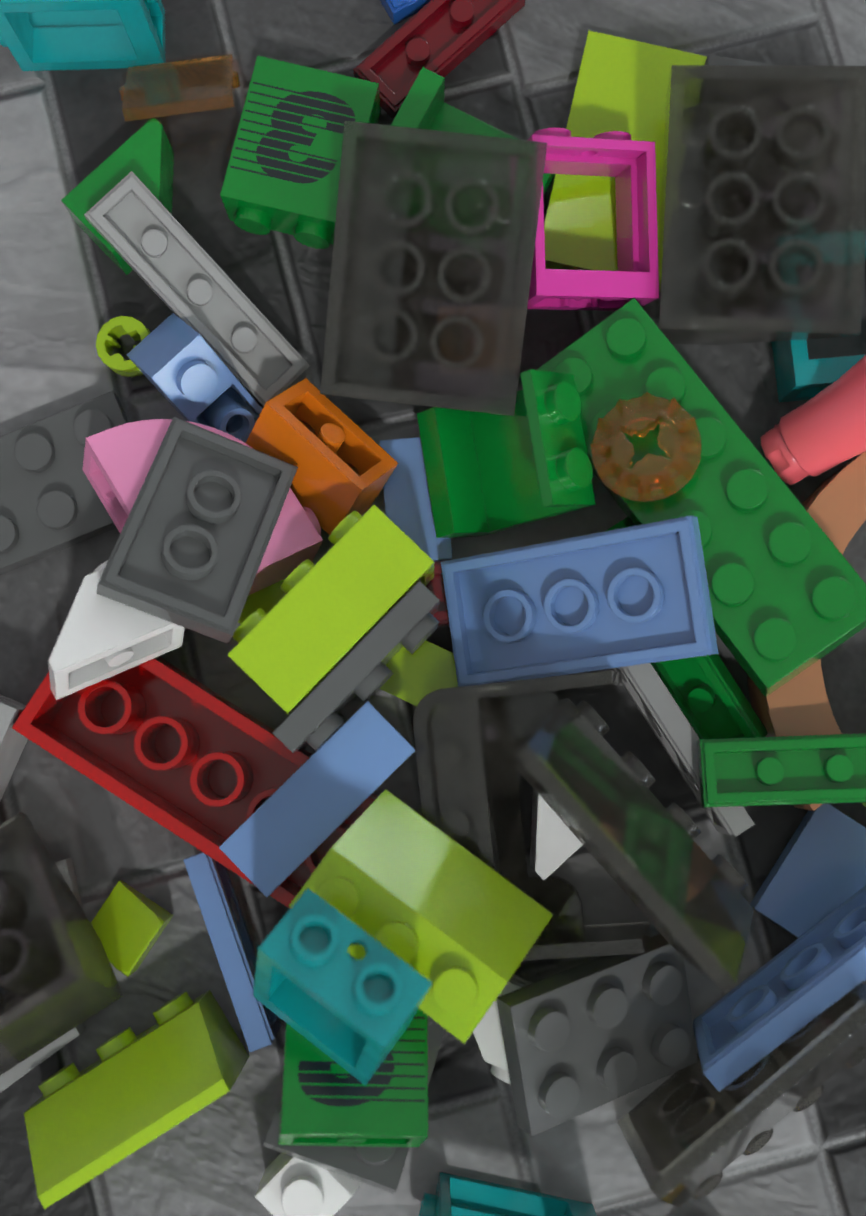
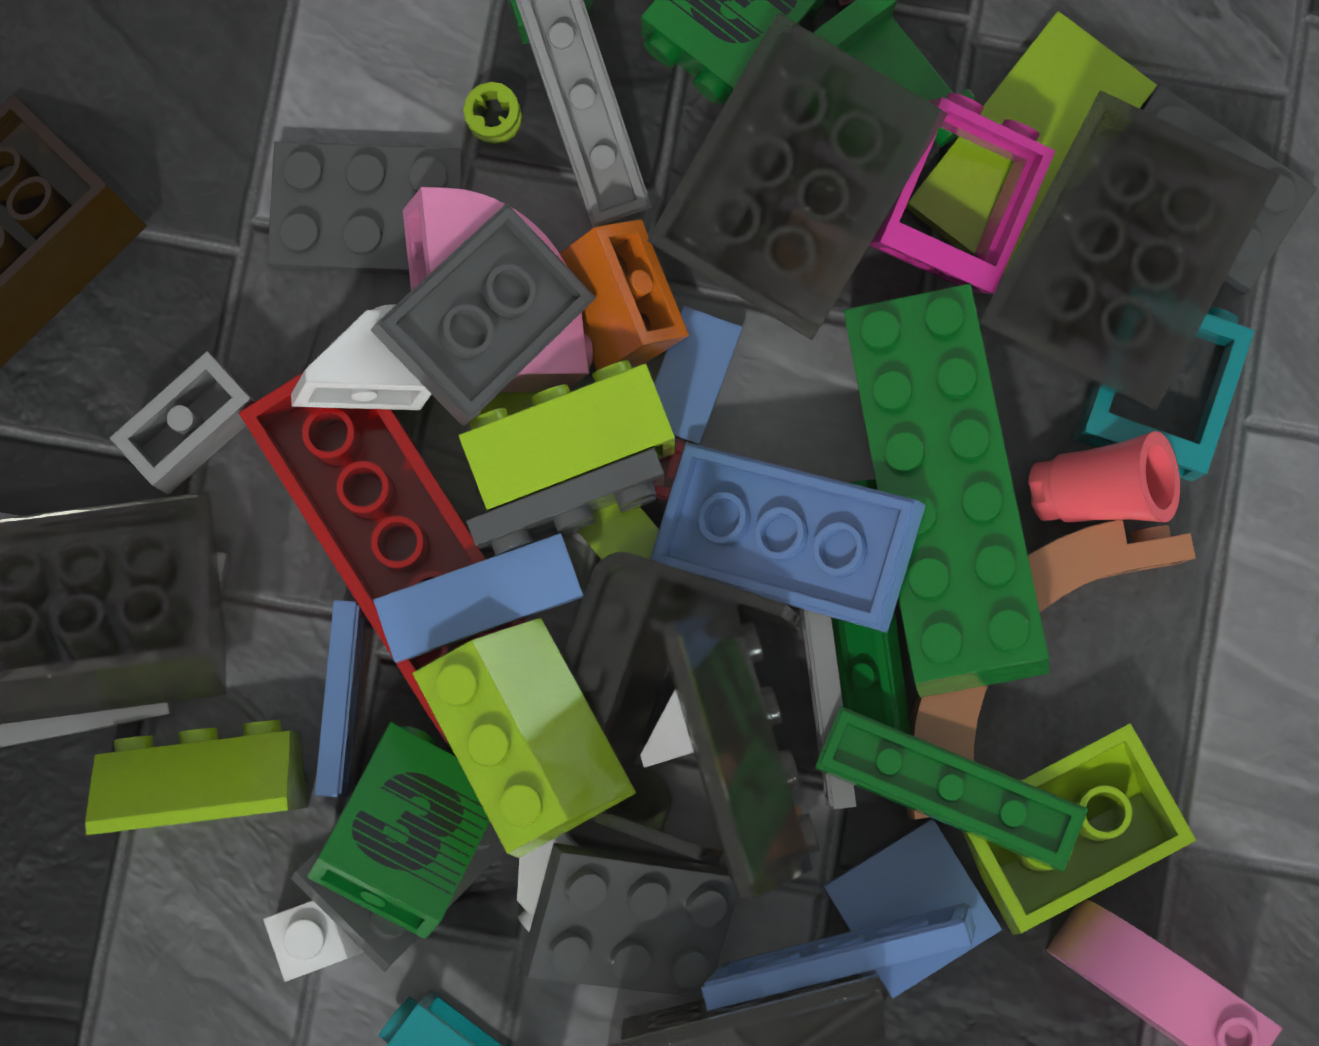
camera: 25 degrees right, 0 degrees up
(129, 927) = (255, 640): lime slope -> none
(195, 379) = (541, 174): medium blue slope -> none
(336, 1002) = (415, 765): teal window -> none
(507, 469) = (782, 385): green panel -> none
(653, 475) = (902, 451): clear orange gear -> none

